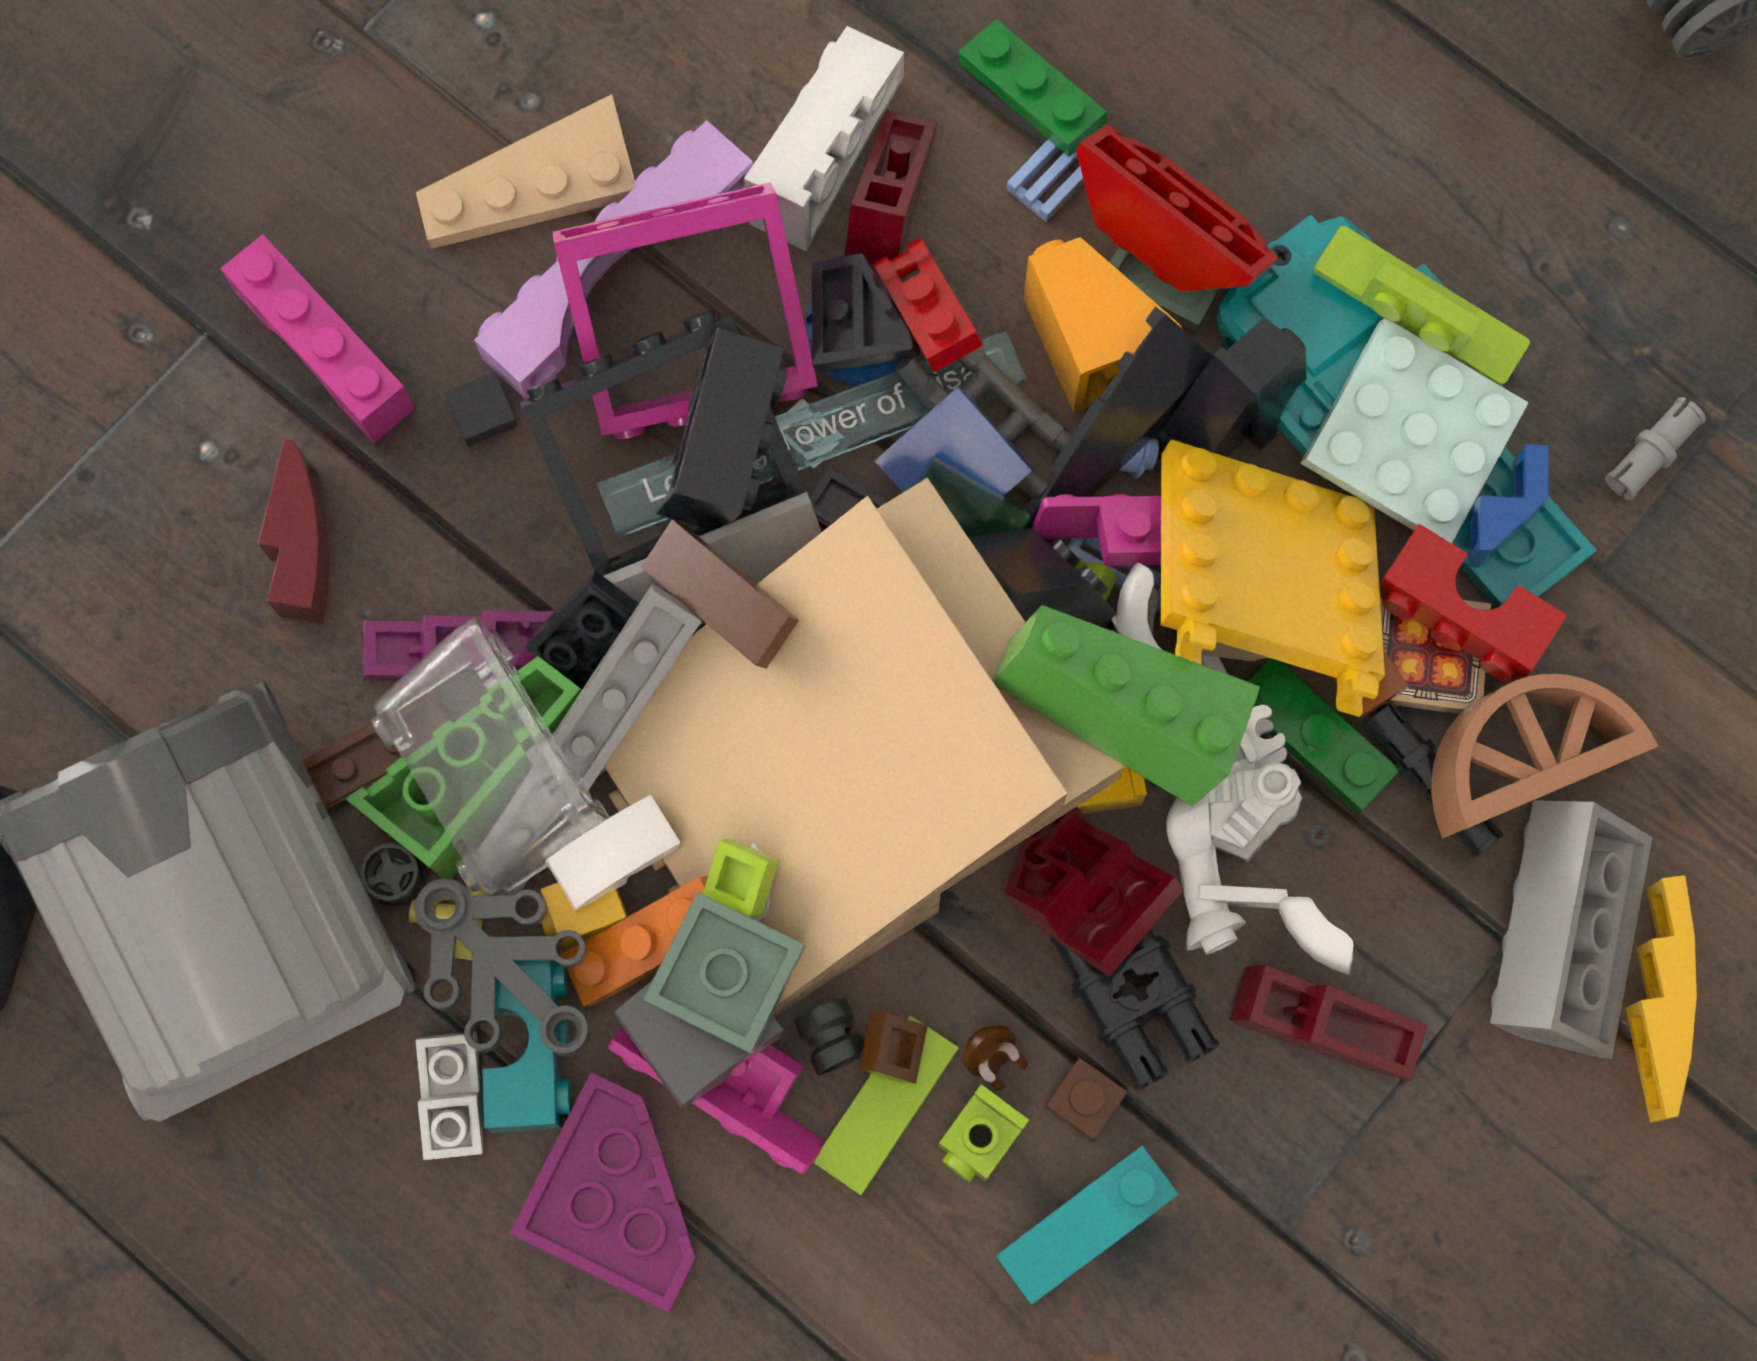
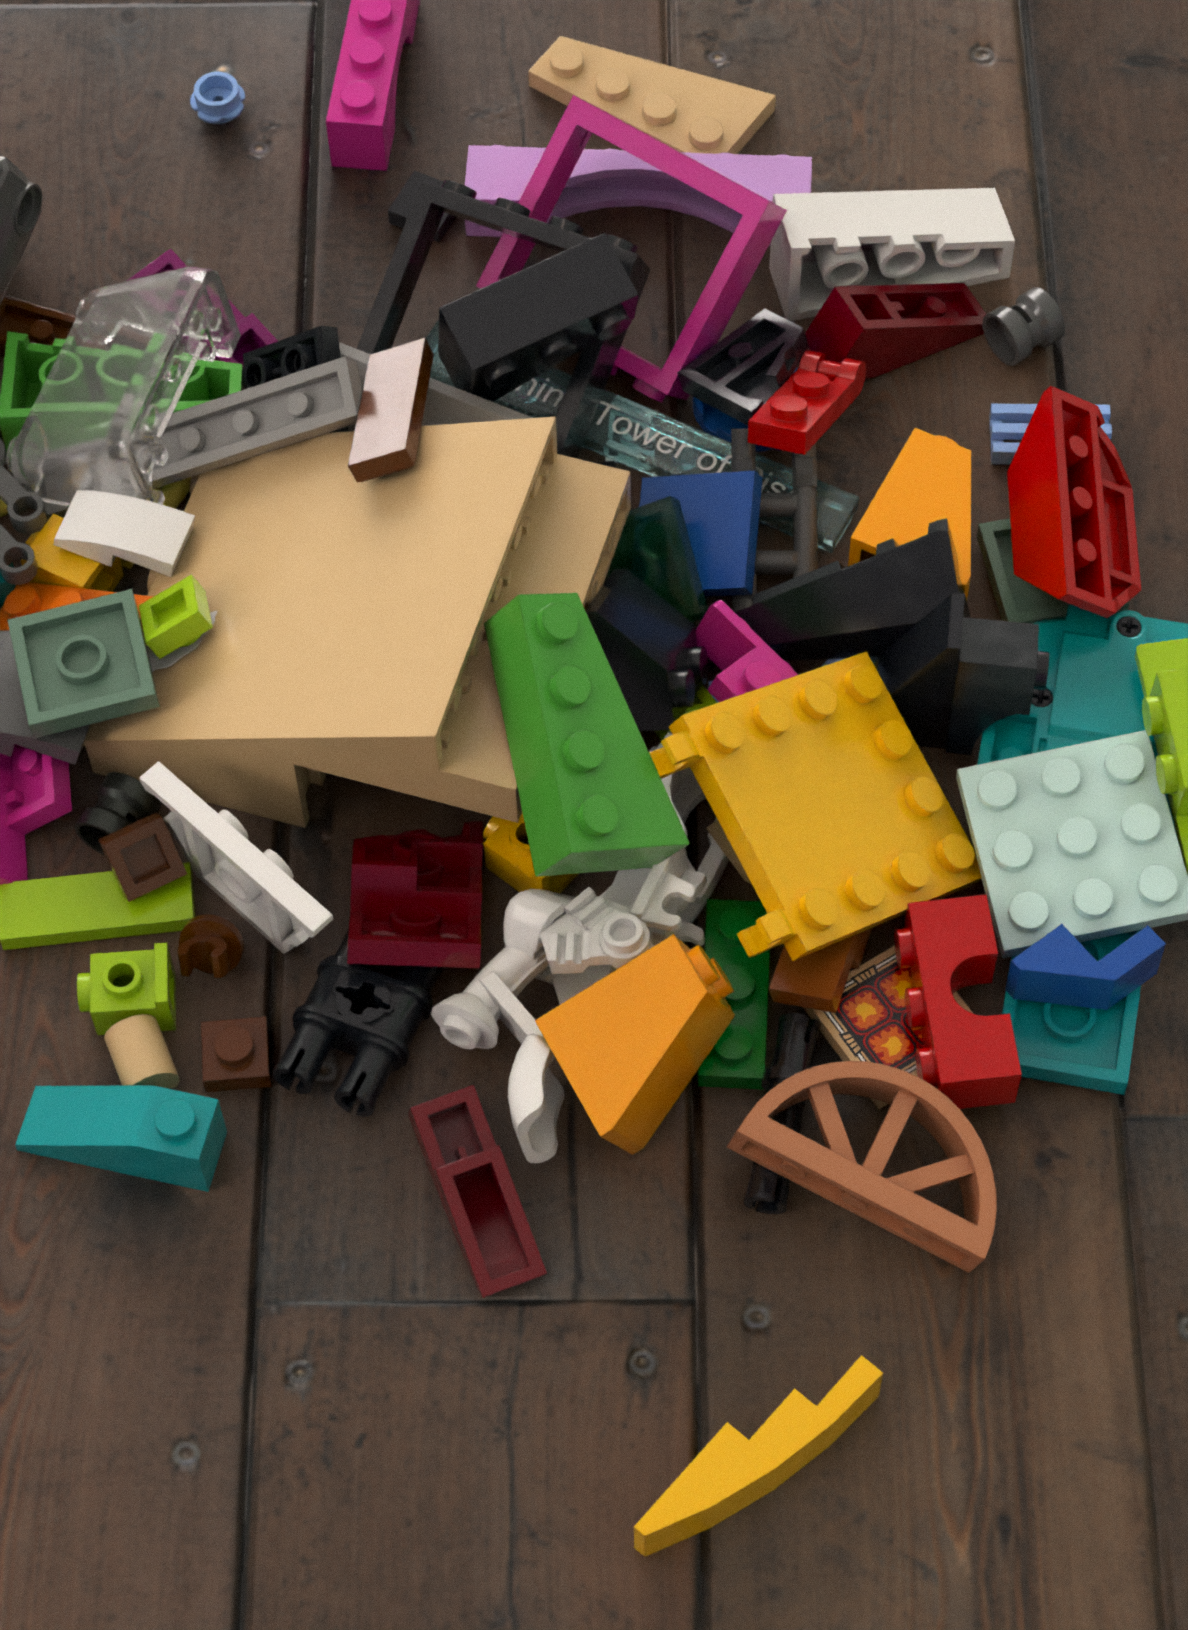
camera: 50 degrees right, 15 degrees down
(235, 463) = (217, 98): none -> light blue plate
(296, 539) = (200, 164): dark red slope -> none
(966, 104) = (1020, 328): none -> dark grey wheel
(995, 986) = (222, 856): none -> white wing
(1032, 87) = (1095, 351): green plate -> none
(1042, 1168) = (141, 1052): none -> tan piece
(1337, 832) = (640, 1037): none -> light orange slope
(1571, 927) = (751, 1329): light grey slope -> none

